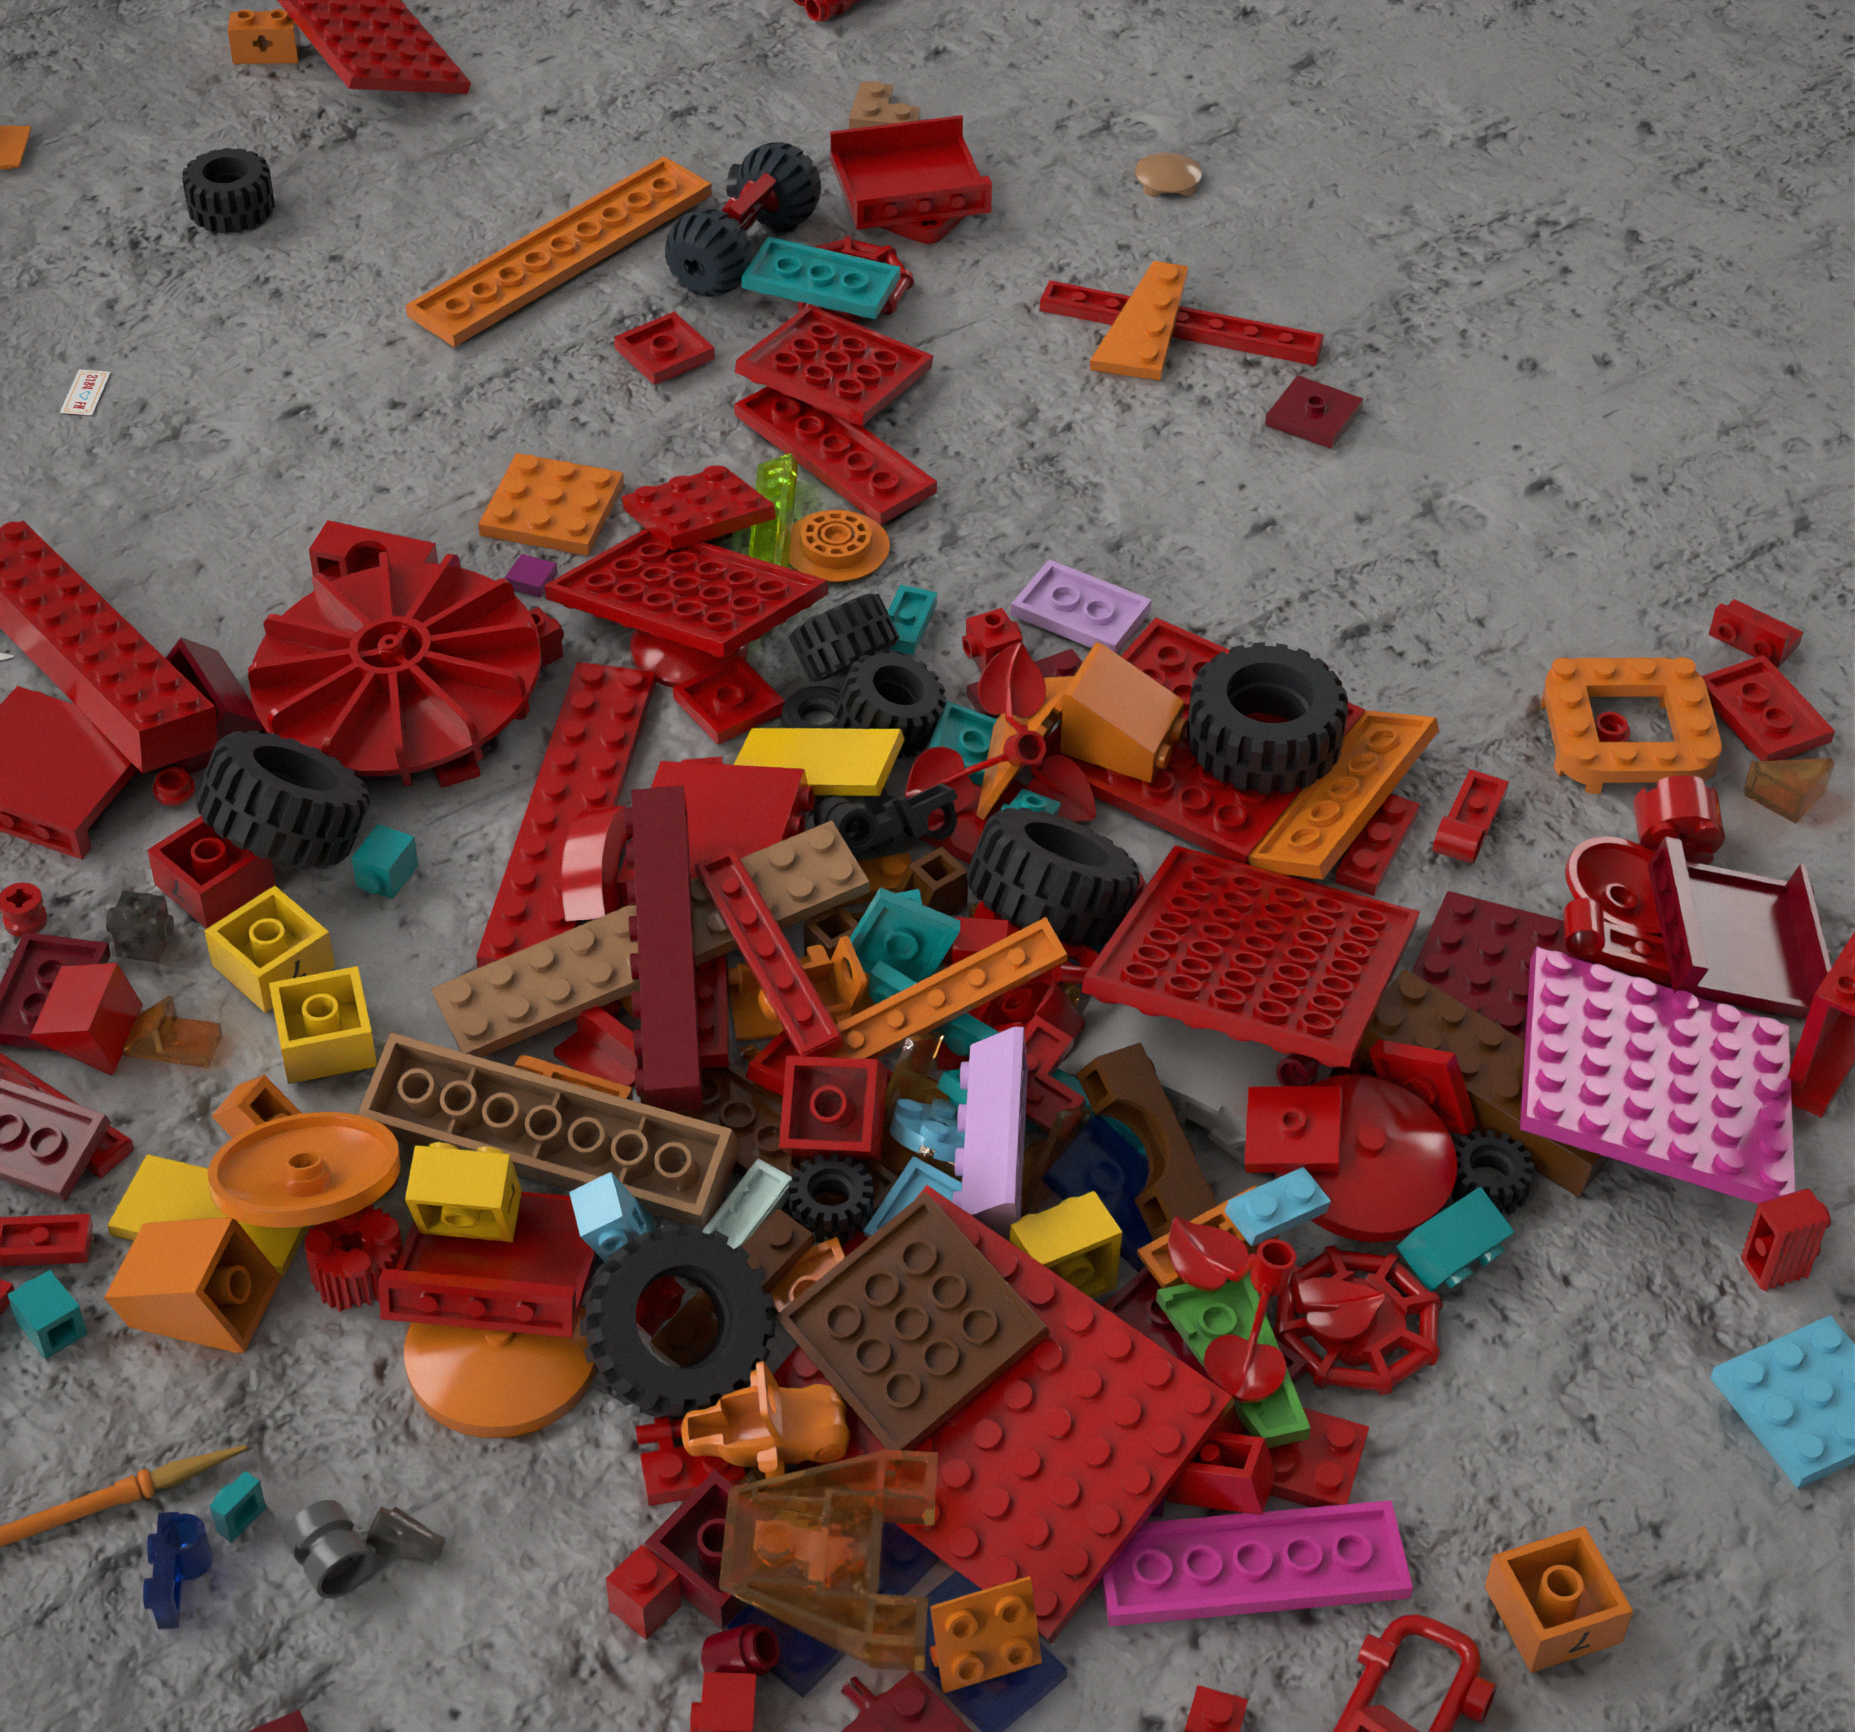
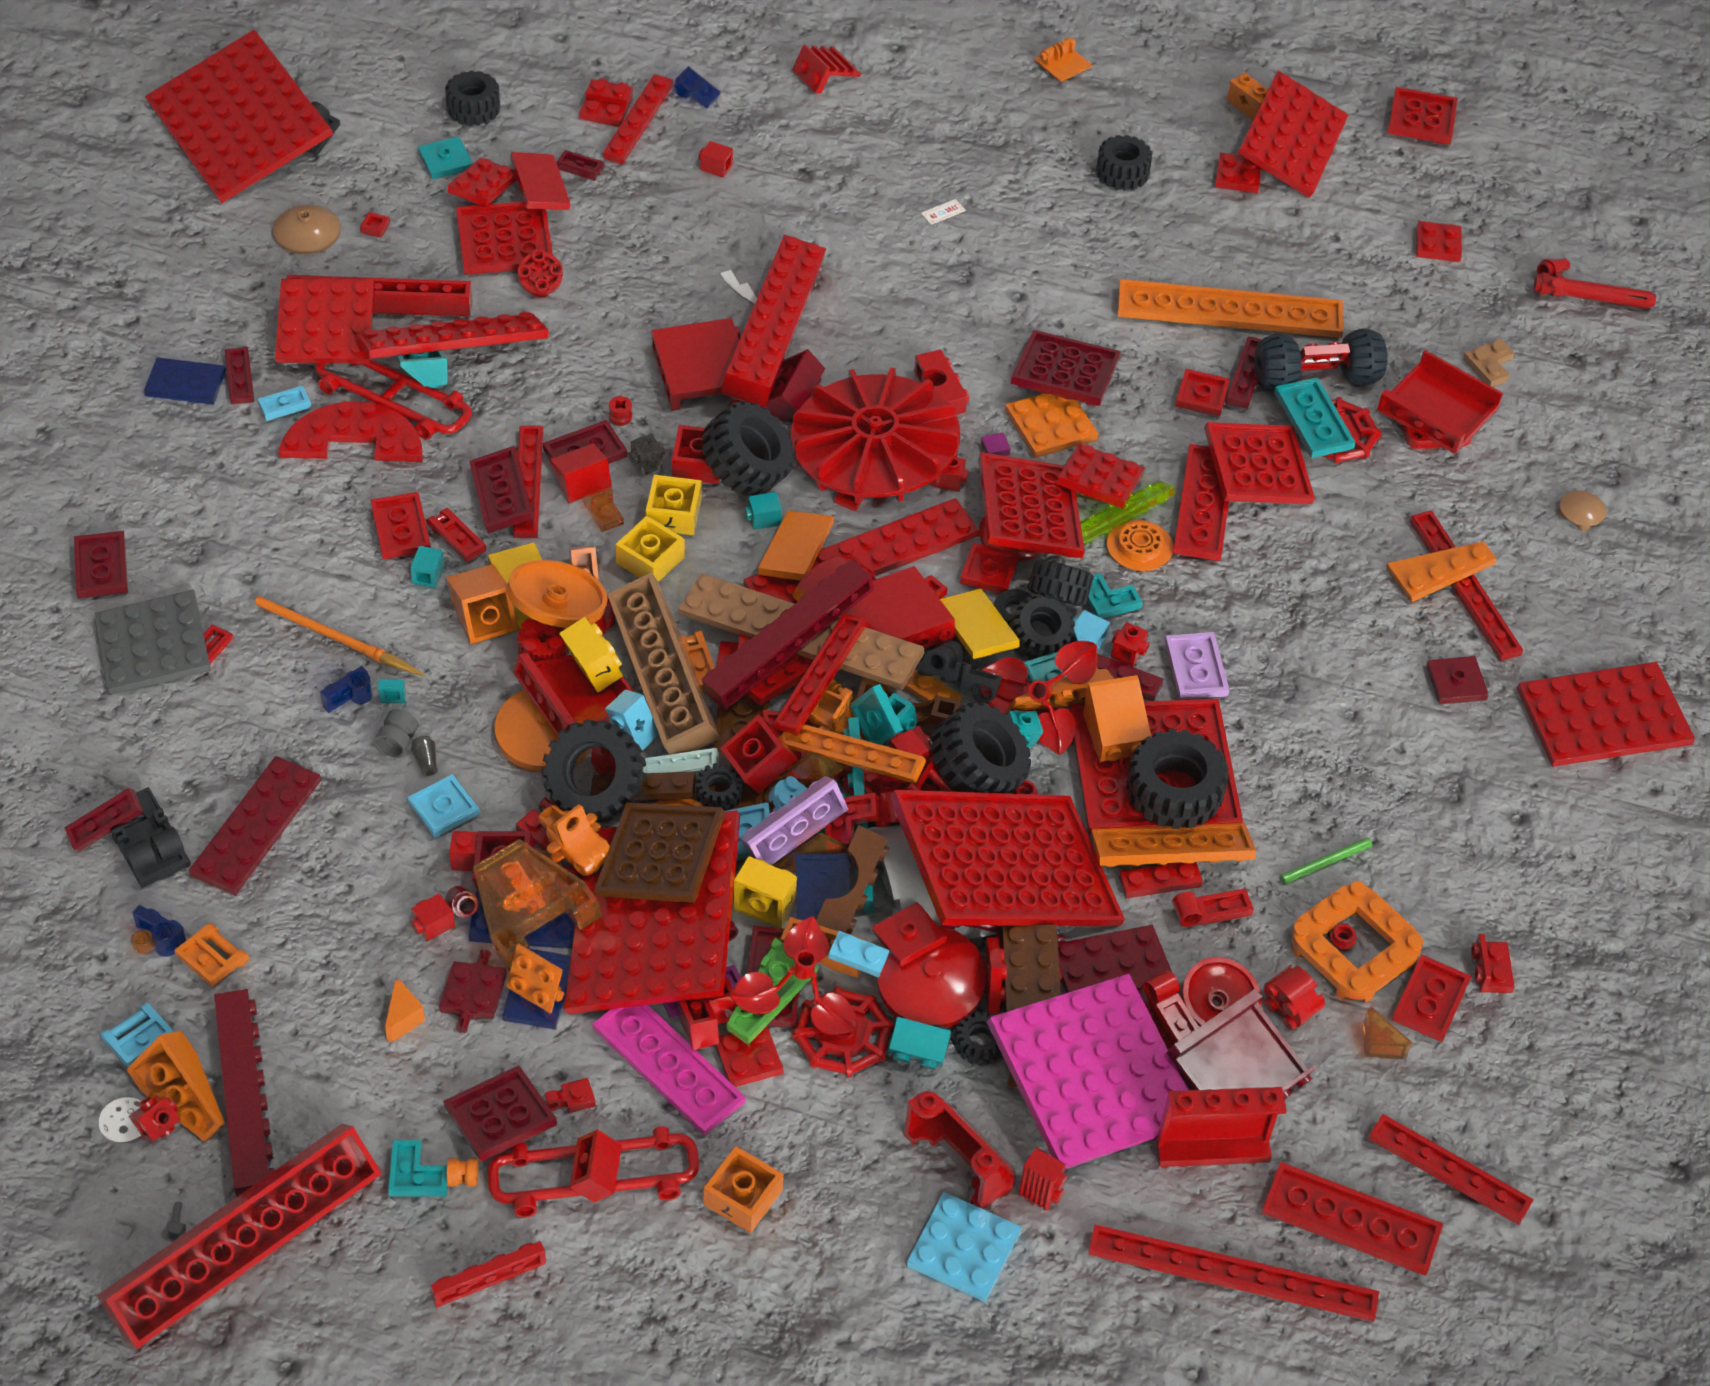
camera: 50 degrees right, 5 degrees up
(360, 119) = (1237, 173): none -> red plate
(487, 863) = (796, 545): none -> orange tile
(492, 432) = (1066, 368): none -> dark red plate
(523, 1572) = (443, 805): none -> medium azure plate
(660, 41) = (1439, 241): none -> red plate
(687, 301) = (1245, 376): none -> dark red plate
(946, 663) = (1090, 628): none -> medium azure slope
(1471, 332) = (1605, 714): none -> red plate
(1479, 679) = (1325, 861): none -> bright green bar
(1732, 1286) = (935, 1119): none -> red windscreen

